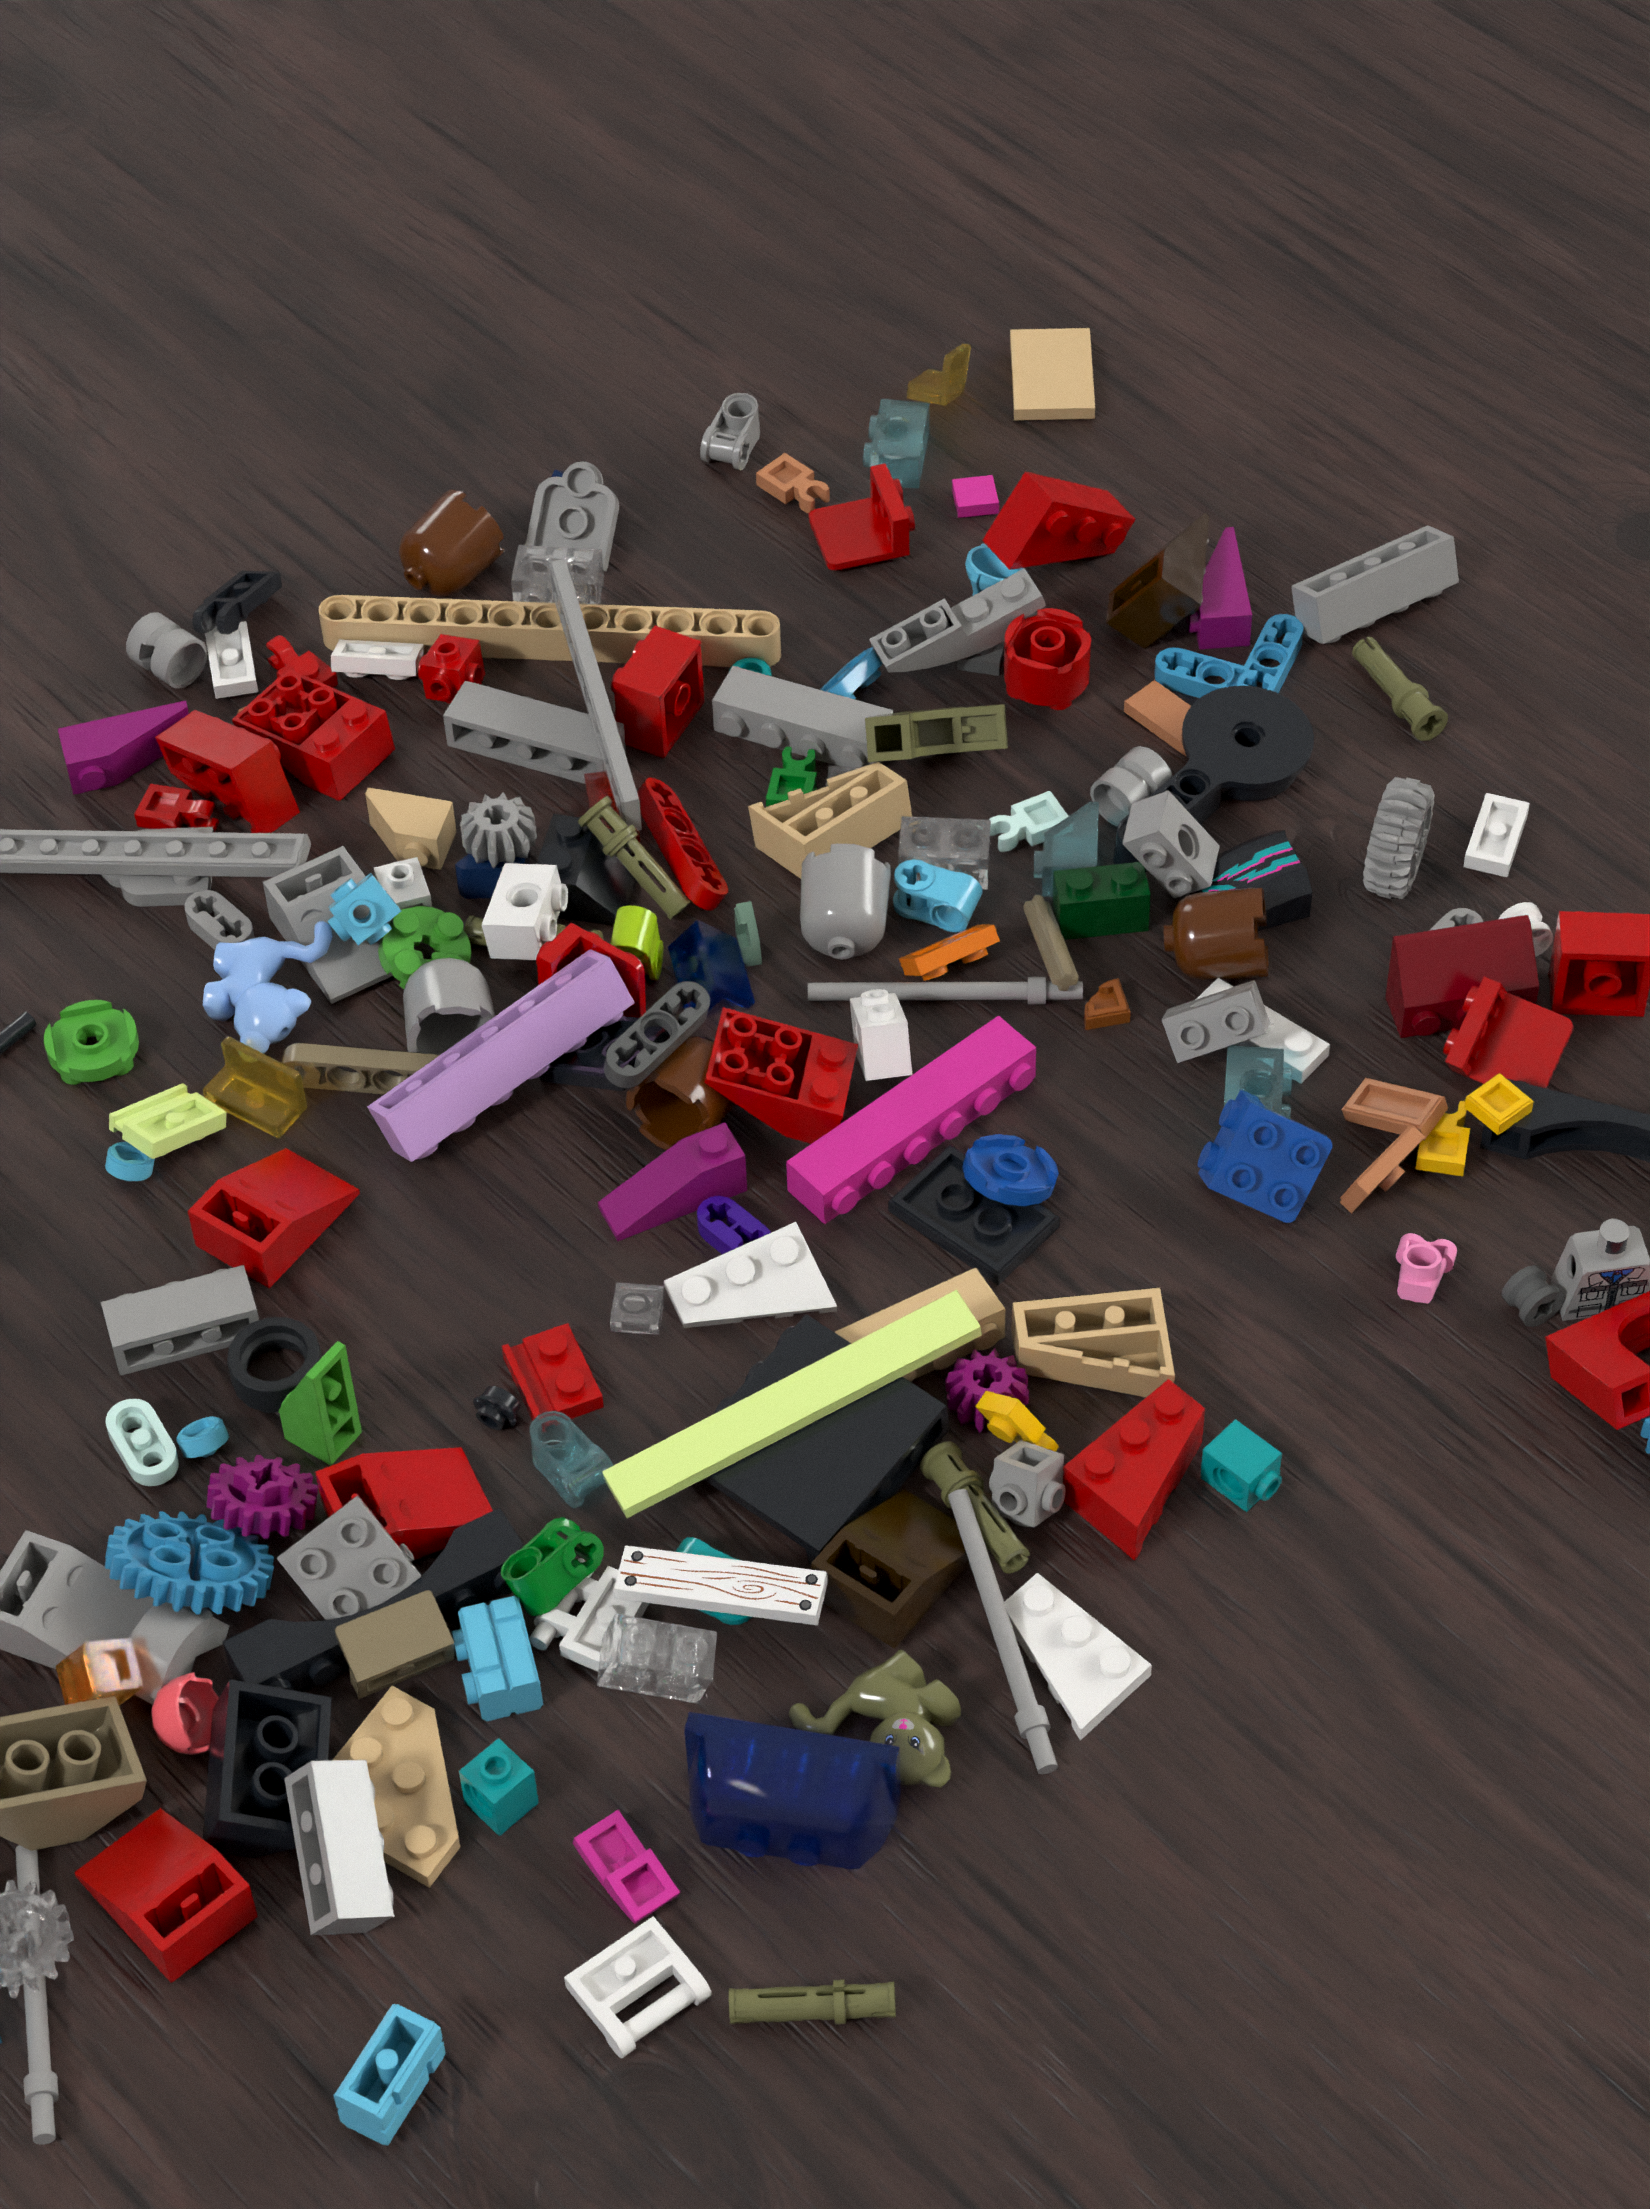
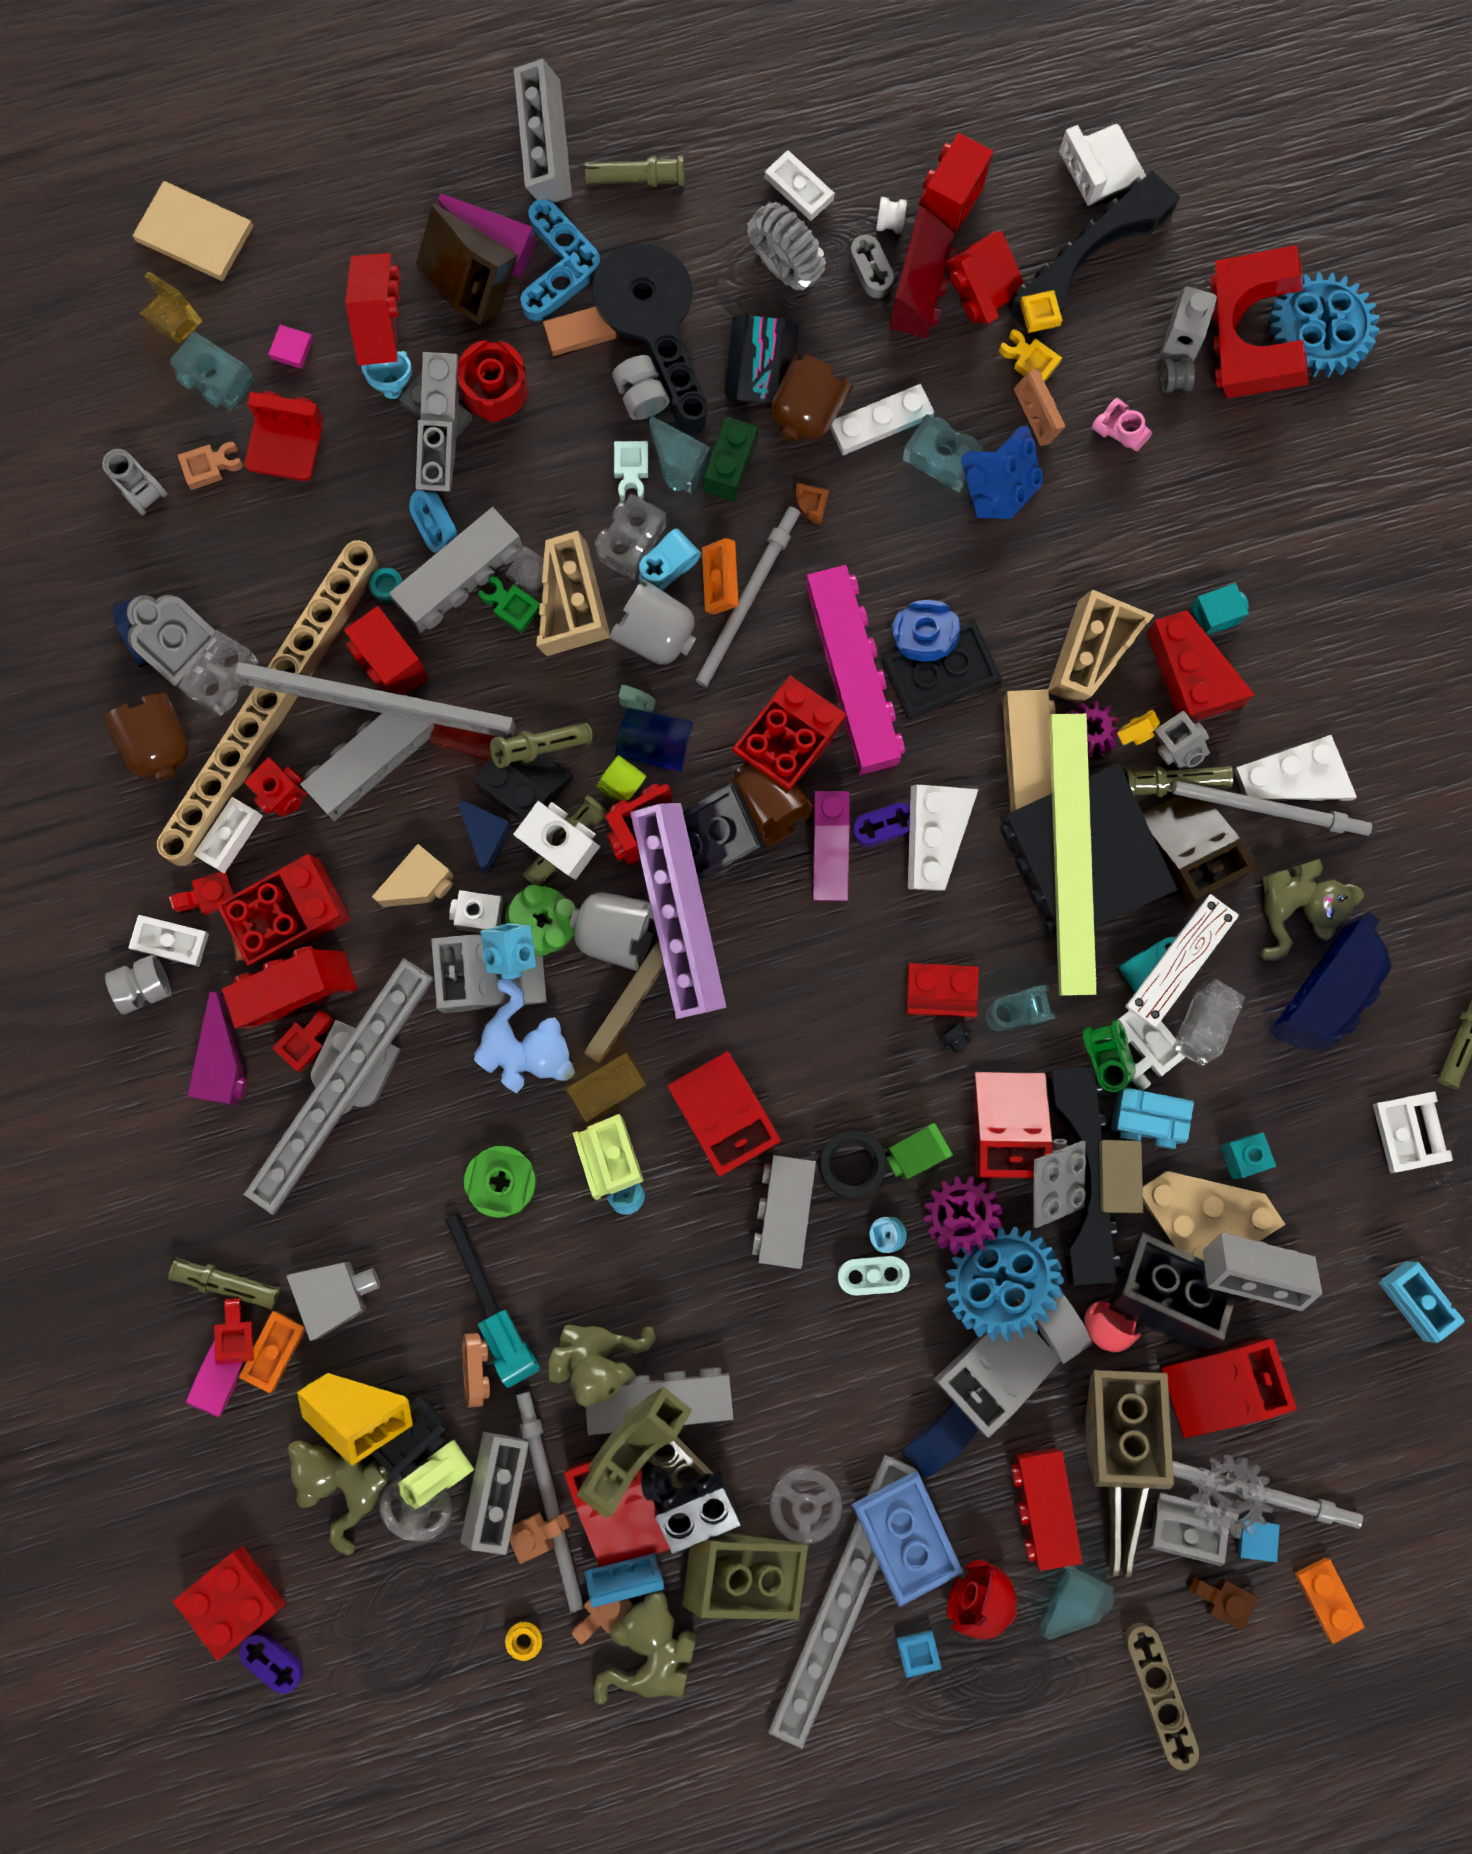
camera: 70 degrees left, 30 degrees up
(100, 1671) = (1073, 1374): clear orange brick -> none
(226, 919) = (428, 1042): light grey beam -> none
(235, 601) = (113, 912): black hinge -> none
(498, 830) = (476, 837): light grey gear -> none
(625, 1867) = (1327, 1103): dark pink slope -> none
(637, 1308) = (914, 913): clear tile -> none
(653, 1053) = (723, 783): dark grey beam -> none
(681, 844) = (565, 705): red beam -> none
(880, 1035) = (787, 655): white brick -> none
(935, 732) = (521, 488): olive arch -> none
(1050, 943) = (749, 509): dark tan axle -> none
(1171, 844) = (727, 391): light grey brick -> none
(1216, 1021) = (884, 442): light grey brick -> none
(1394, 1107) = (995, 373): nougat tile -> none

